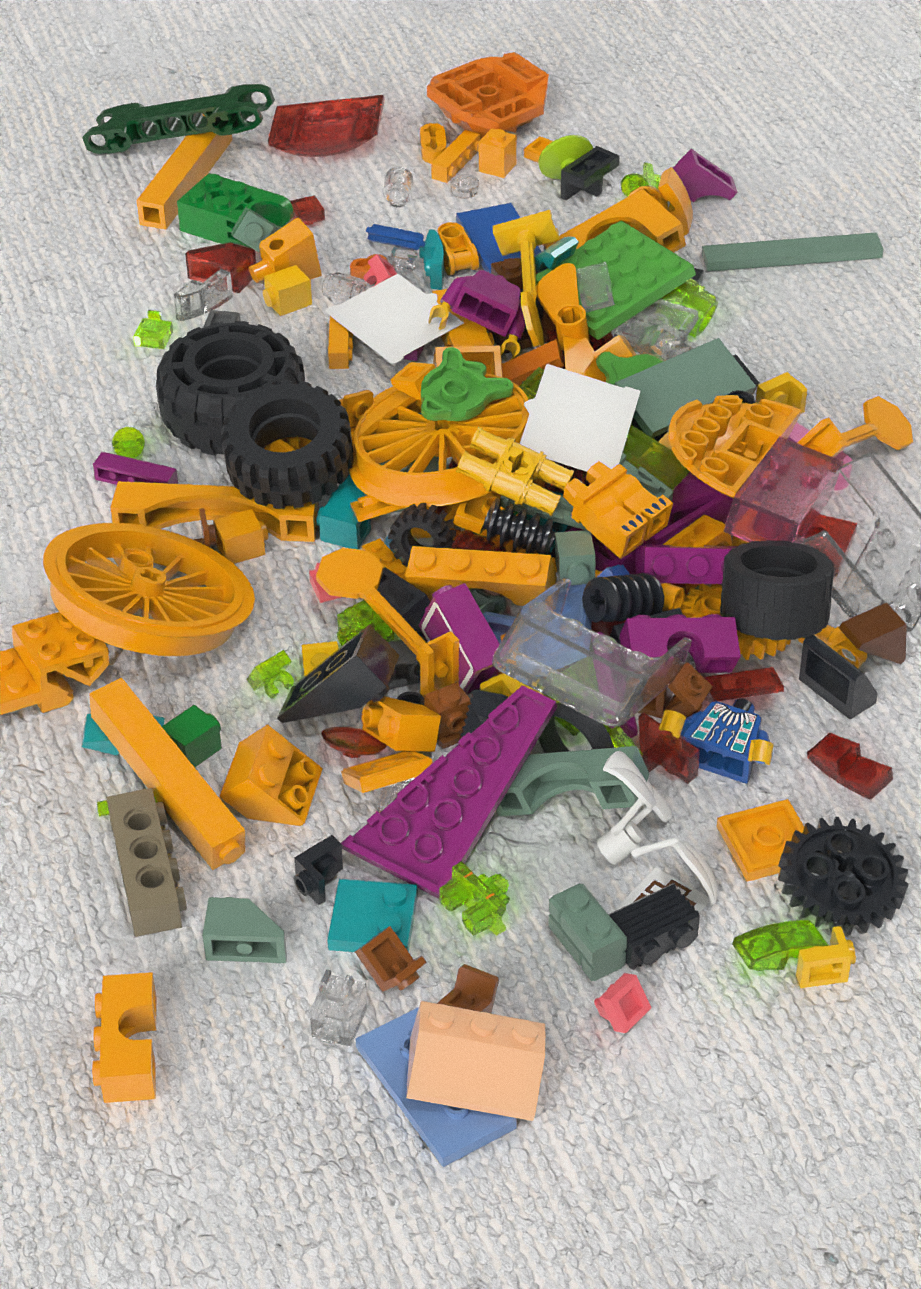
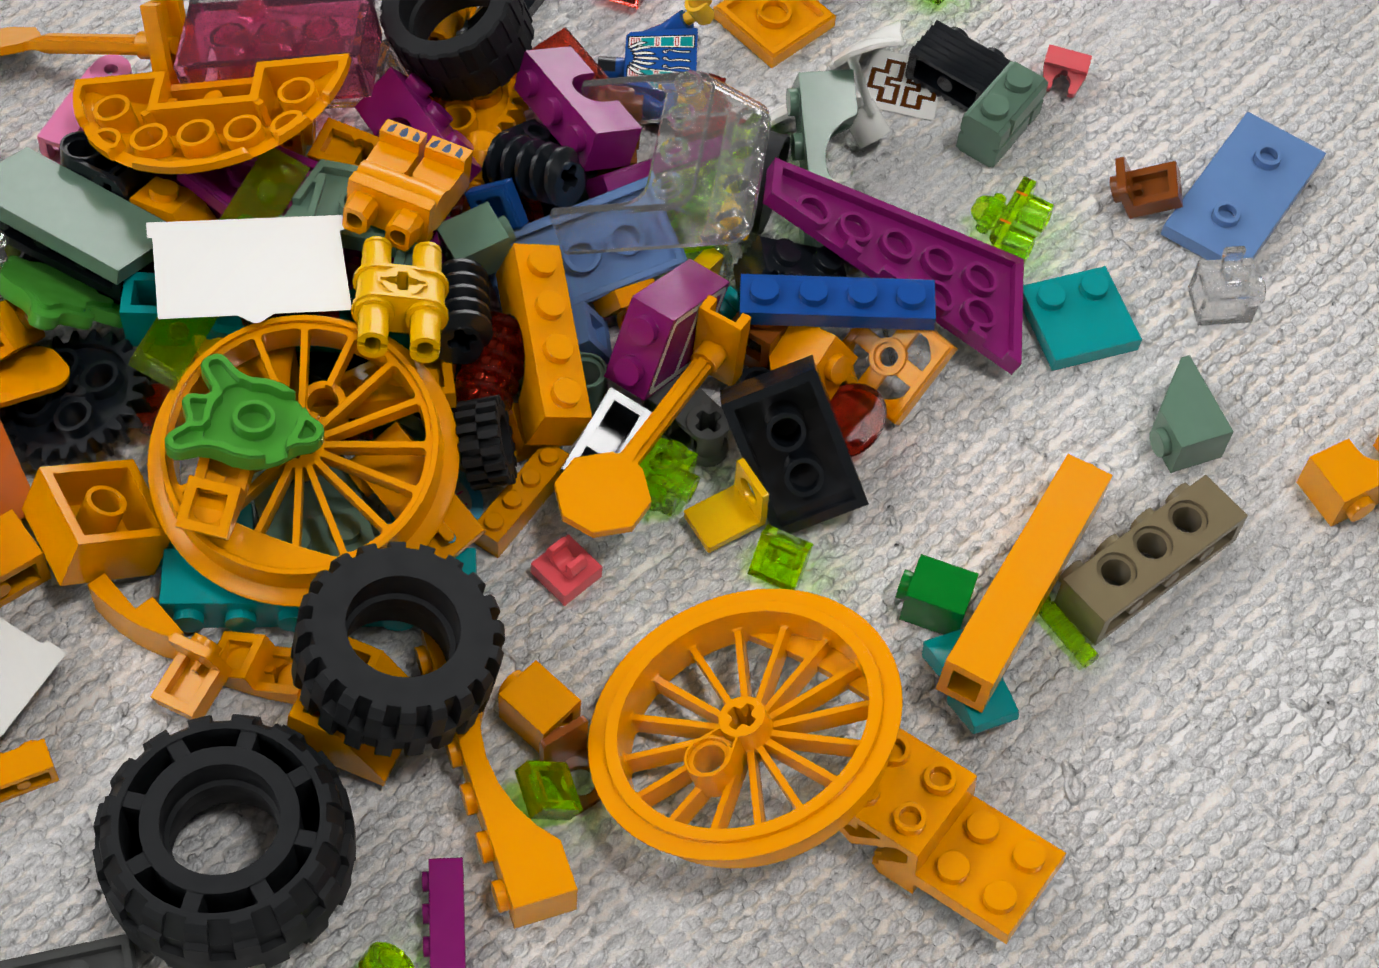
camera: 120 degrees left, 15 degrees up
(183, 521) = (548, 790): none -> clear neon green plate
(271, 779) = (959, 481): light orange slope -> none
(317, 865) = (1056, 384): black bracket -> none
(389, 961) = (1141, 262): dark orange bracket -> none
(428, 726) = (838, 301): none -> blue plate
(476, 1060) = (1223, 144): light nougat slope -> none

